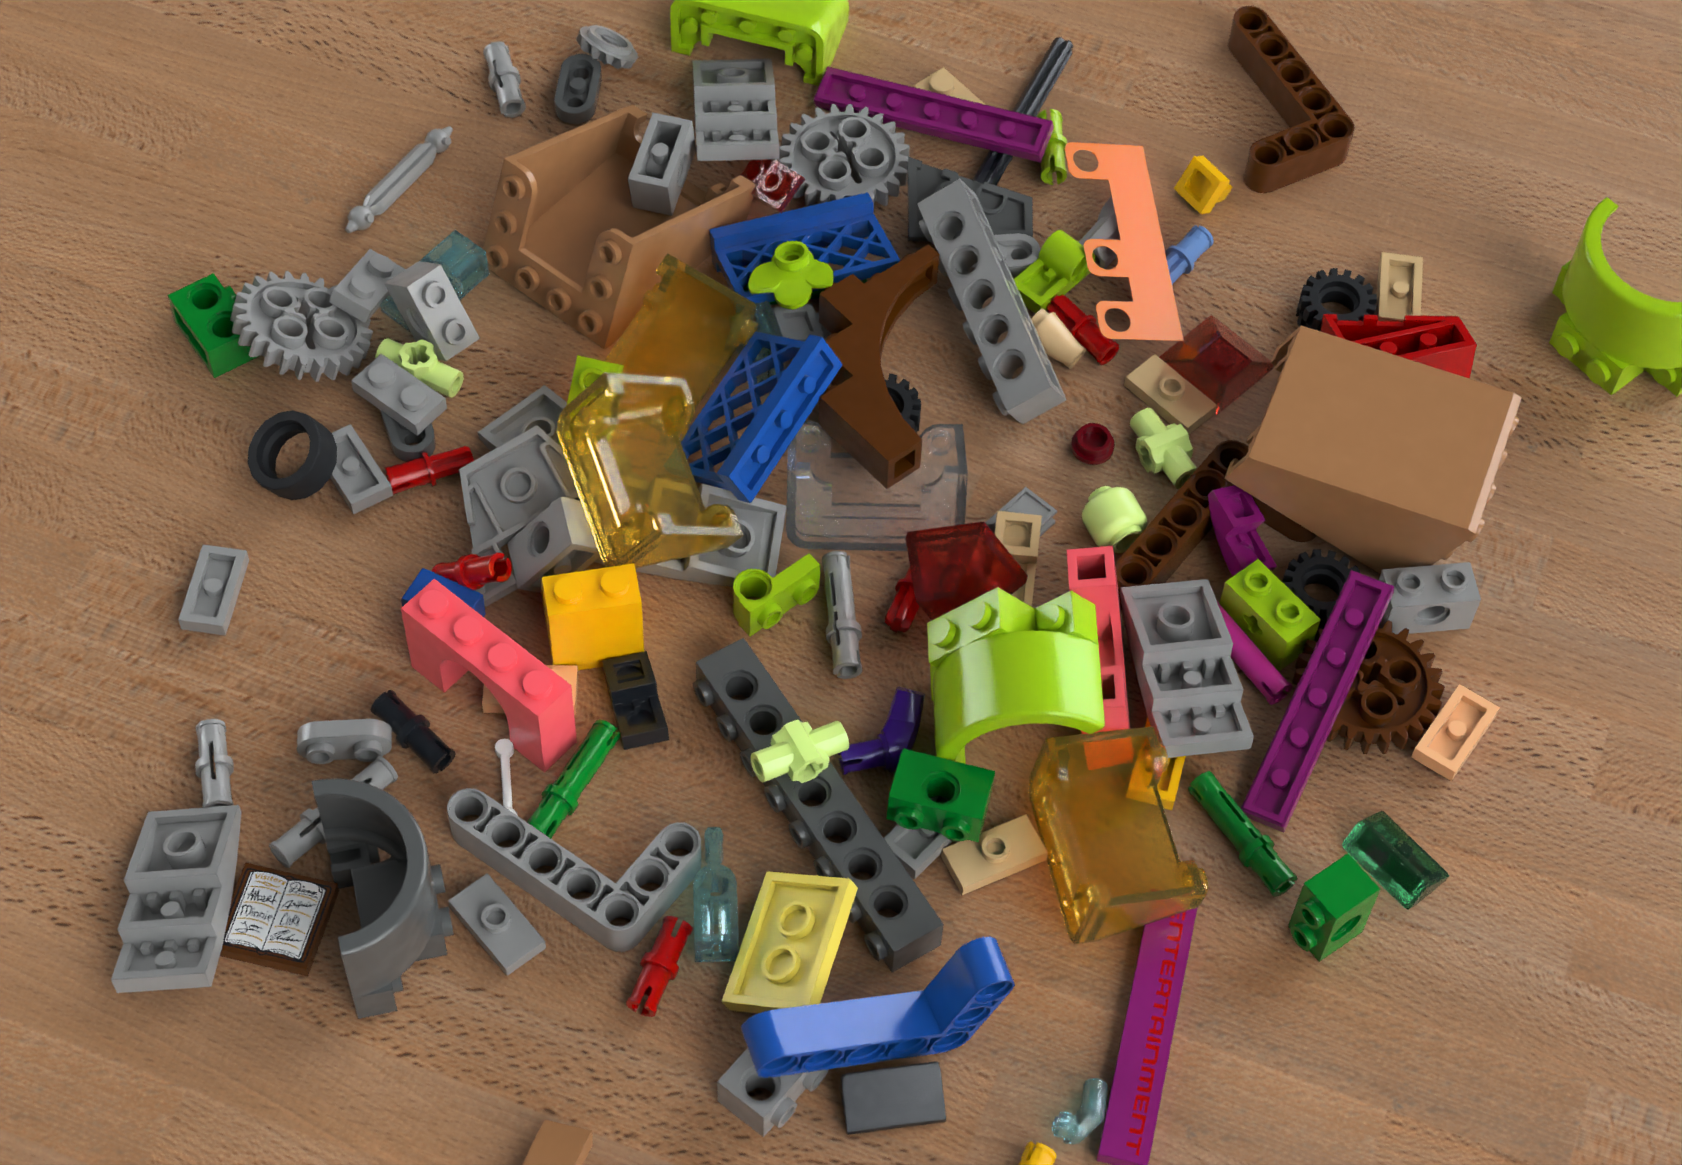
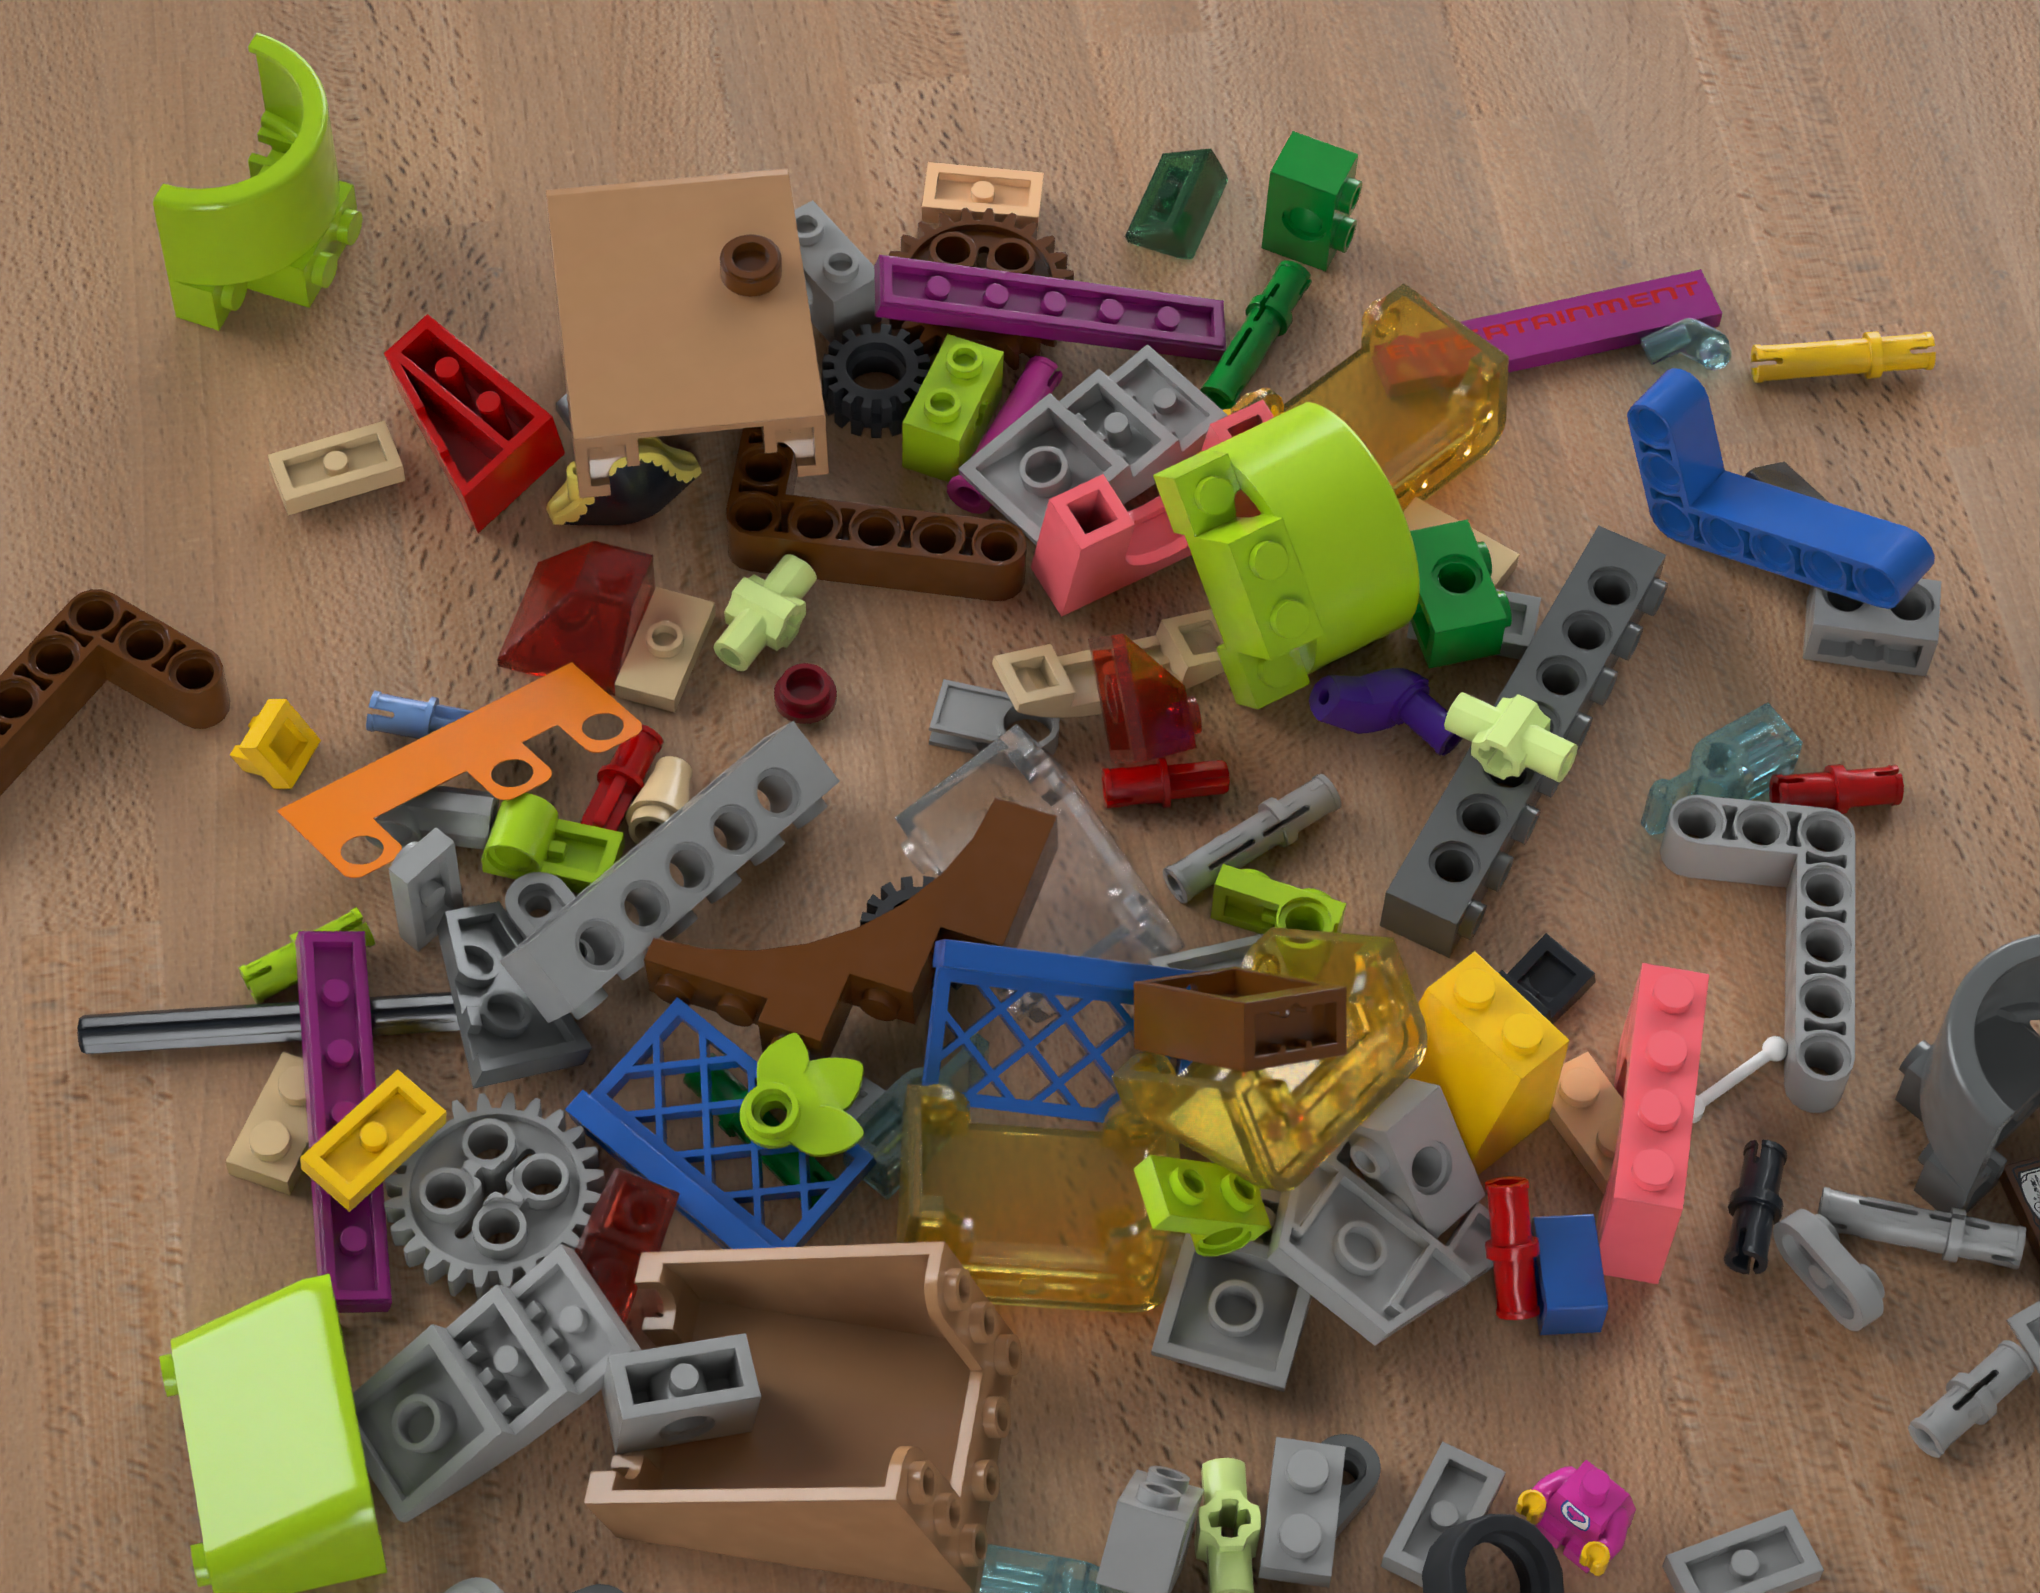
camera: 120 degrees left, 0 degrees up
(299, 525) = (1580, 1512): none -> dark pink piece
(427, 469) = (1374, 1424): red axle -> none
(497, 924) = (1911, 982): light grey plate -> none
(562, 796) = (1764, 997): green pin -> none
(636, 429) = (1240, 1018): none -> reddish brown window
(789, 942) = (1724, 659): light yellow plate -> none
(900, 103) = (373, 1140): none -> yellow plate
(1050, 190) = (425, 886): none -> light grey plate
(1114, 517) = (918, 611): yellowish green head -> none
(1235, 526) = (862, 474): magenta slope -> none
(1336, 289) = (407, 495): black tyre -> none
(1392, 466) = (750, 265): none -> reddish brown tile

